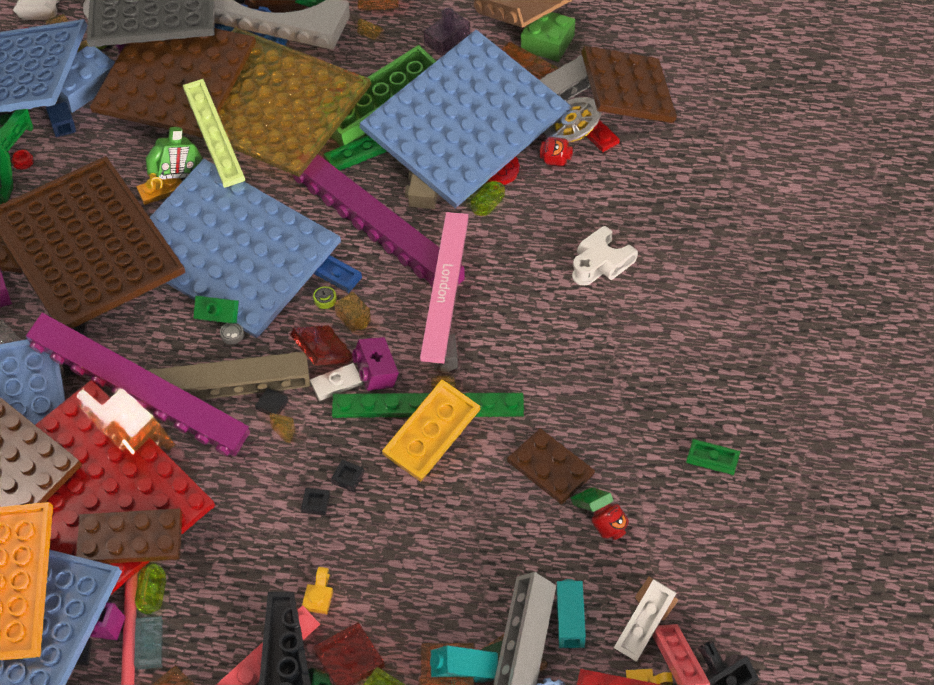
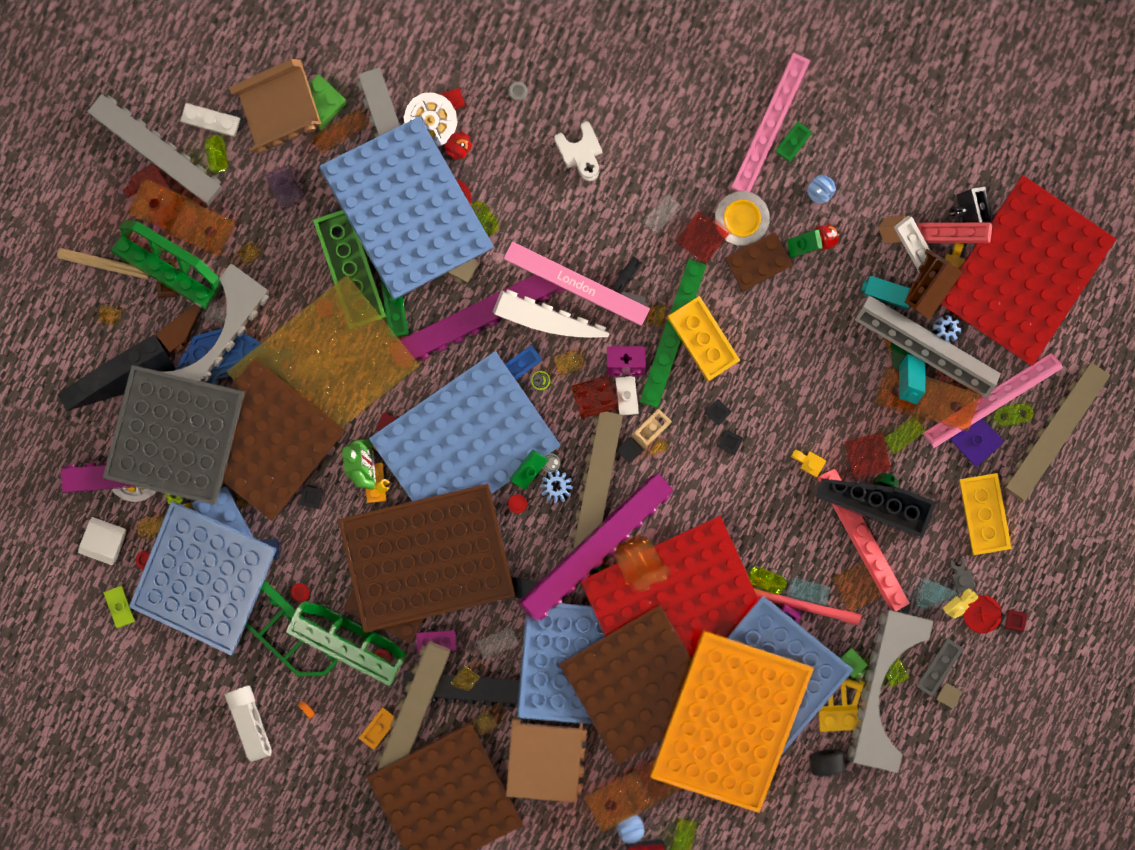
camera: 75 degrees left, 30 degrees up
(129, 142) = (311, 497): none -> black tile
(130, 536) = (731, 583): reddish brown plate -> none
(174, 315) = (517, 503): none -> red plate
(204, 342) = (563, 486): none -> light blue gear
(213, 133) = (352, 422): yellowish green tile -> none
(305, 415) = (650, 429): none -> tan slope
(393, 267) = (543, 317): none -> white slope
(478, 339) = (626, 275): none -> black pin
(553, 397) = (702, 237): none -> clear red plate
(564, 352) = (662, 214): none -> clear plate
(596, 433) = (743, 217): none -> piece
(598, 652) = (932, 284): none -> reddish brown wedge
(628, 84) = (409, 58): reddish brown plate -> none
(641, 189) = (518, 91): none -> light grey tile
(668, 500) = (821, 189): none -> light blue piece
(724, 429) = (770, 123): none -> bright pink tile

